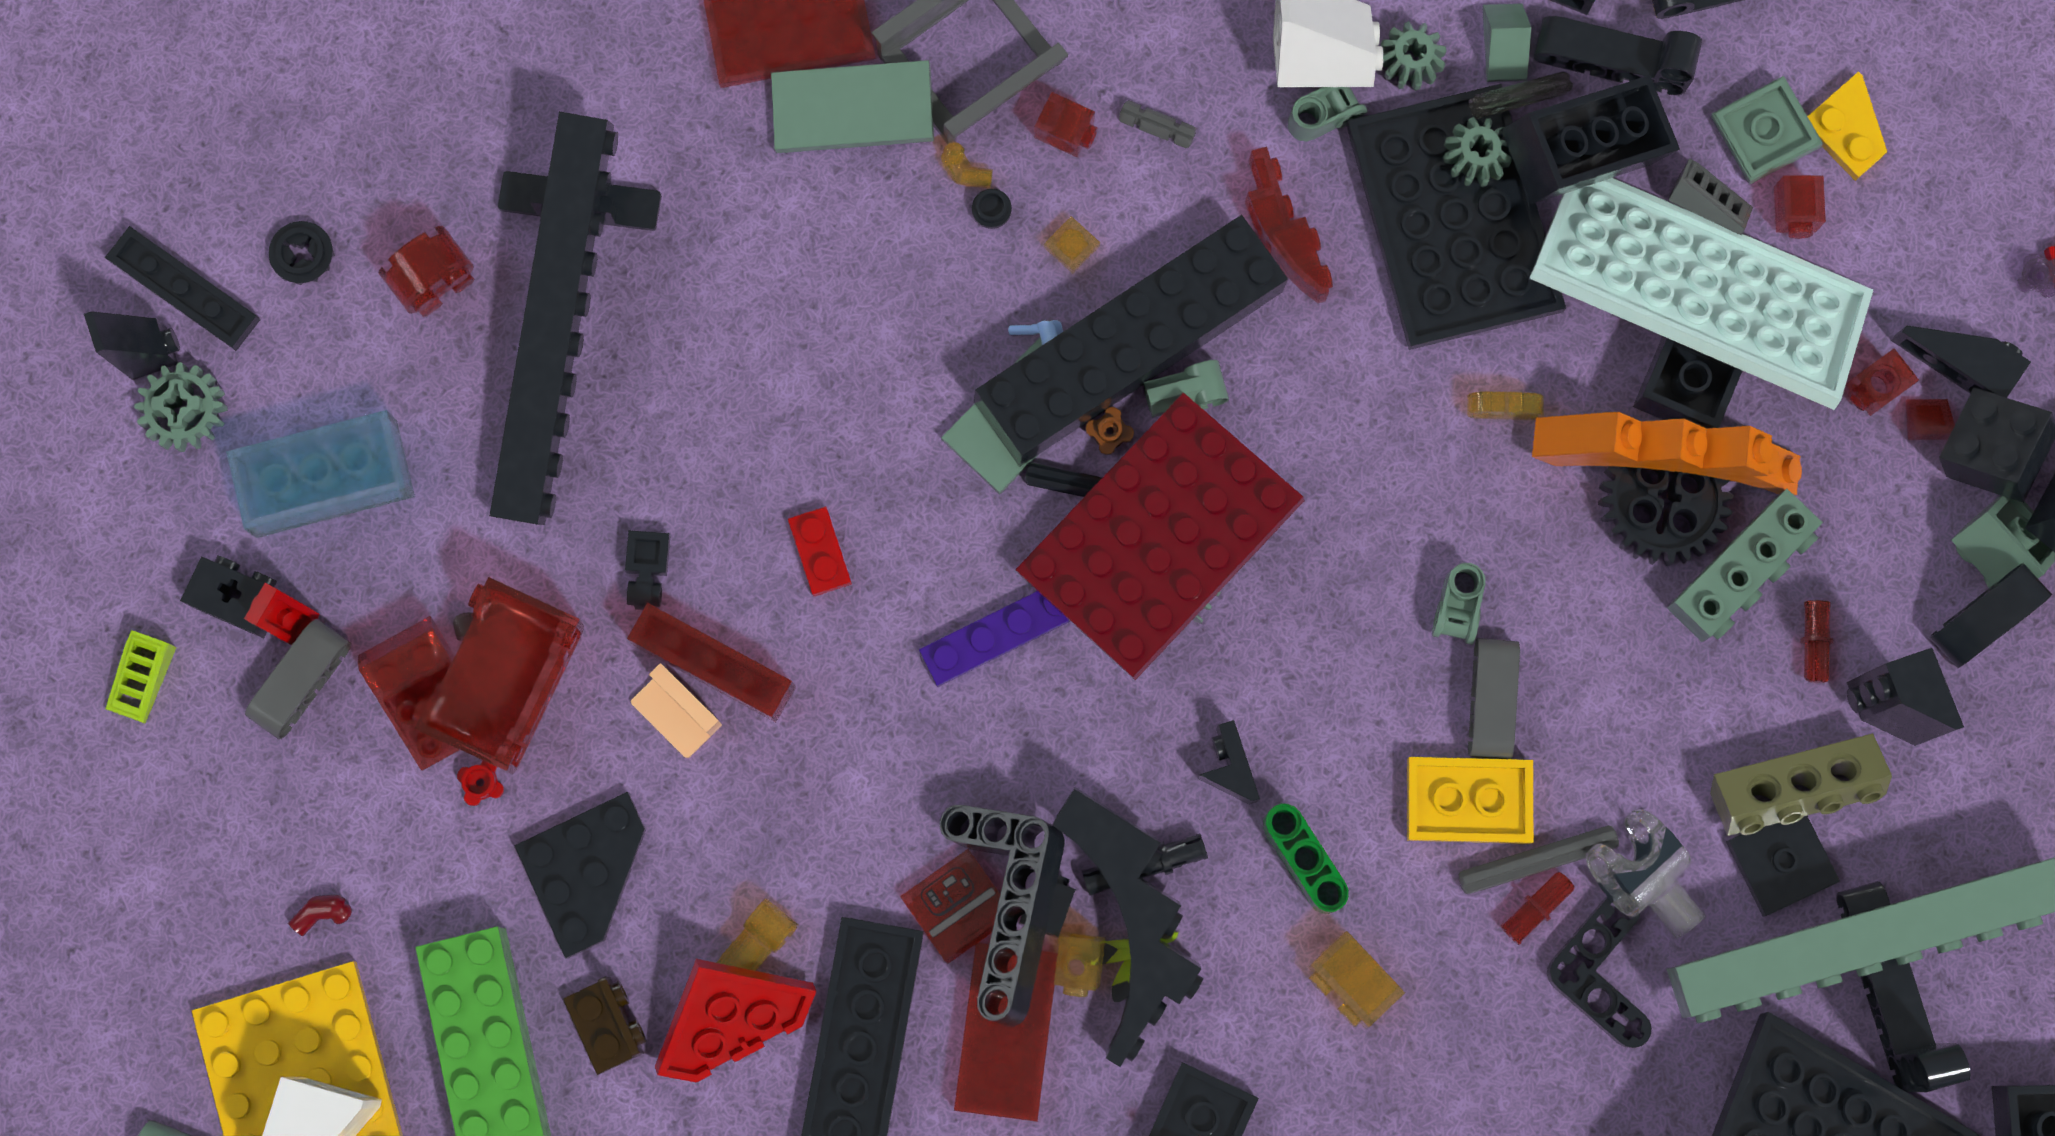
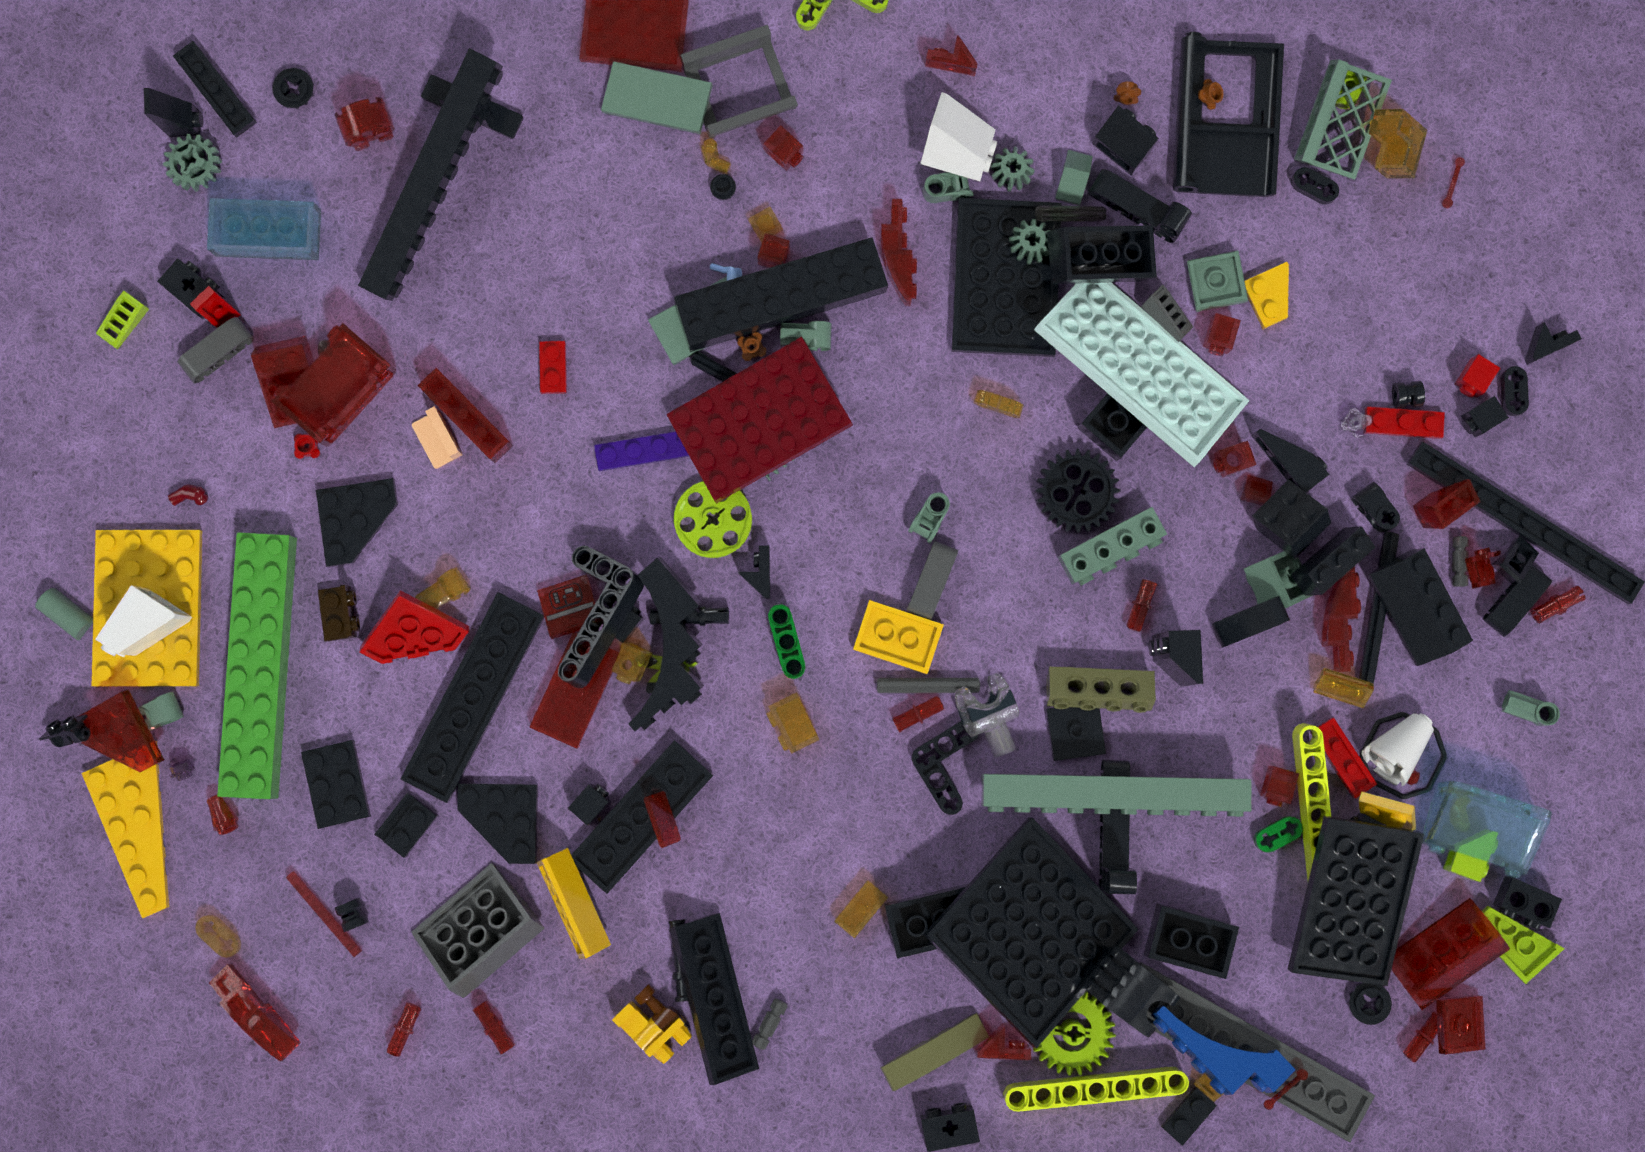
camera: 15 degrees right, 5 degrees up
(646, 556) = (446, 339): black plate -> none
(1098, 280) = (773, 251): none -> clear red brick
(1141, 726) = (715, 532): none -> lime wedge
(1157, 124) = (841, 164): dark grey axle -> none
(1670, 445) = (1089, 459): orange arch -> none

